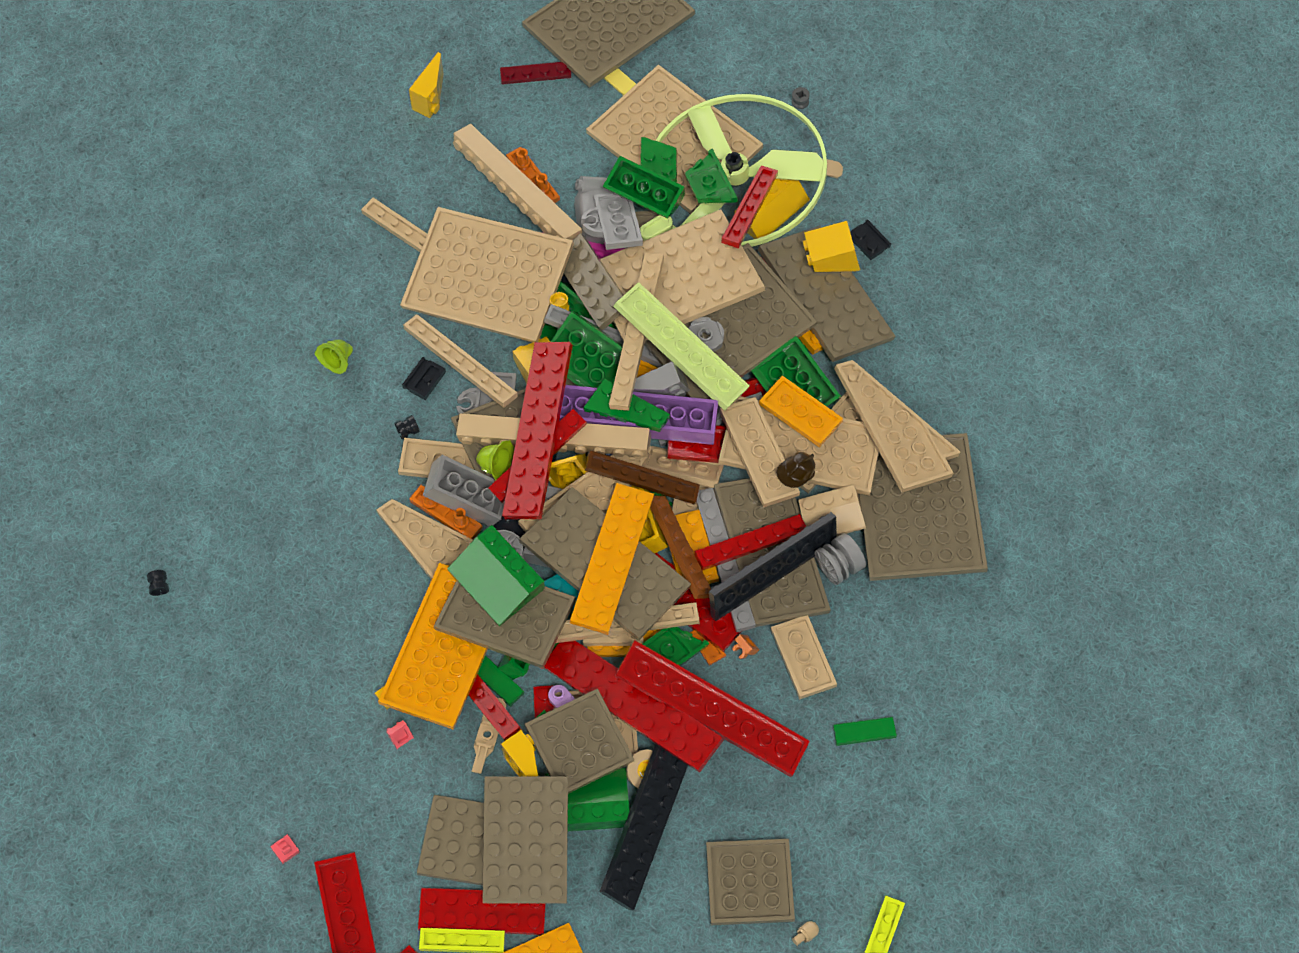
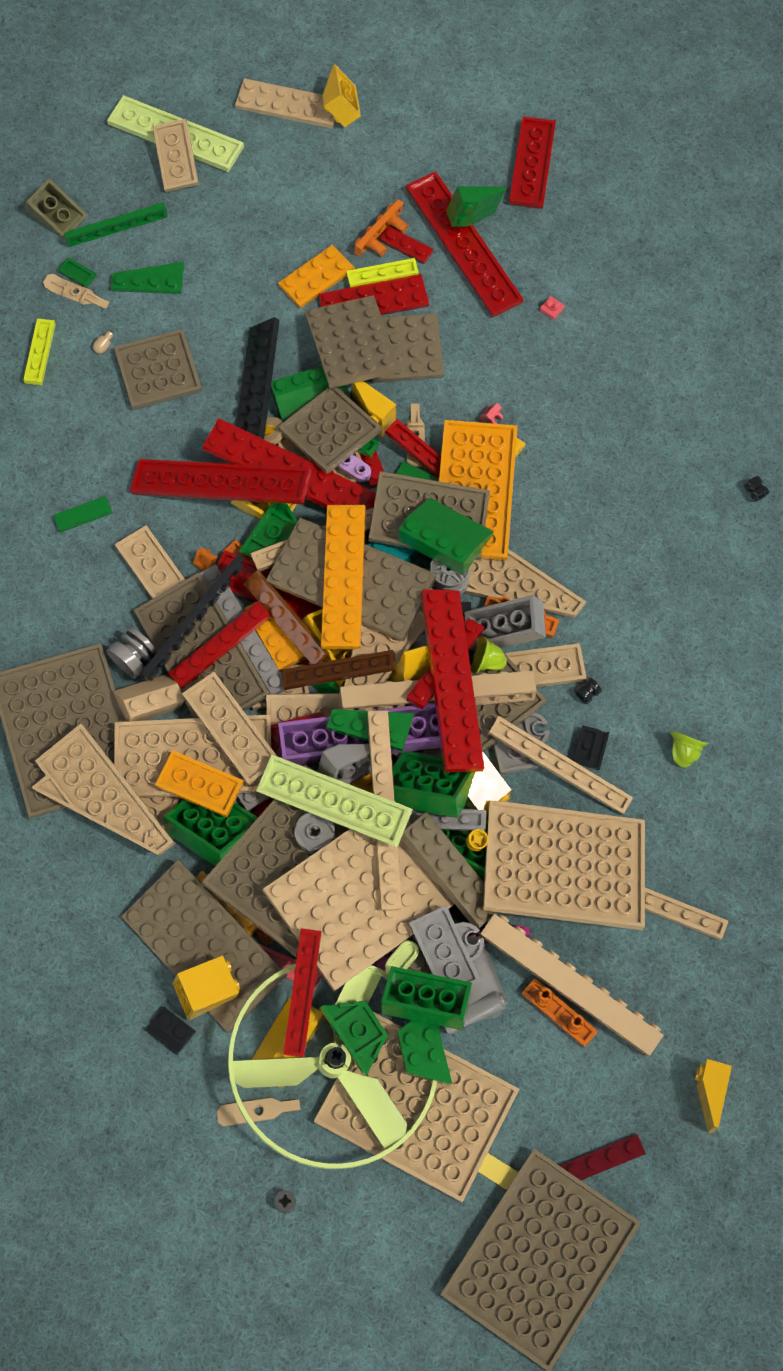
camera: 165 degrees right, 5 degrees up
(796, 470) = (190, 715): dark brown piece -> none

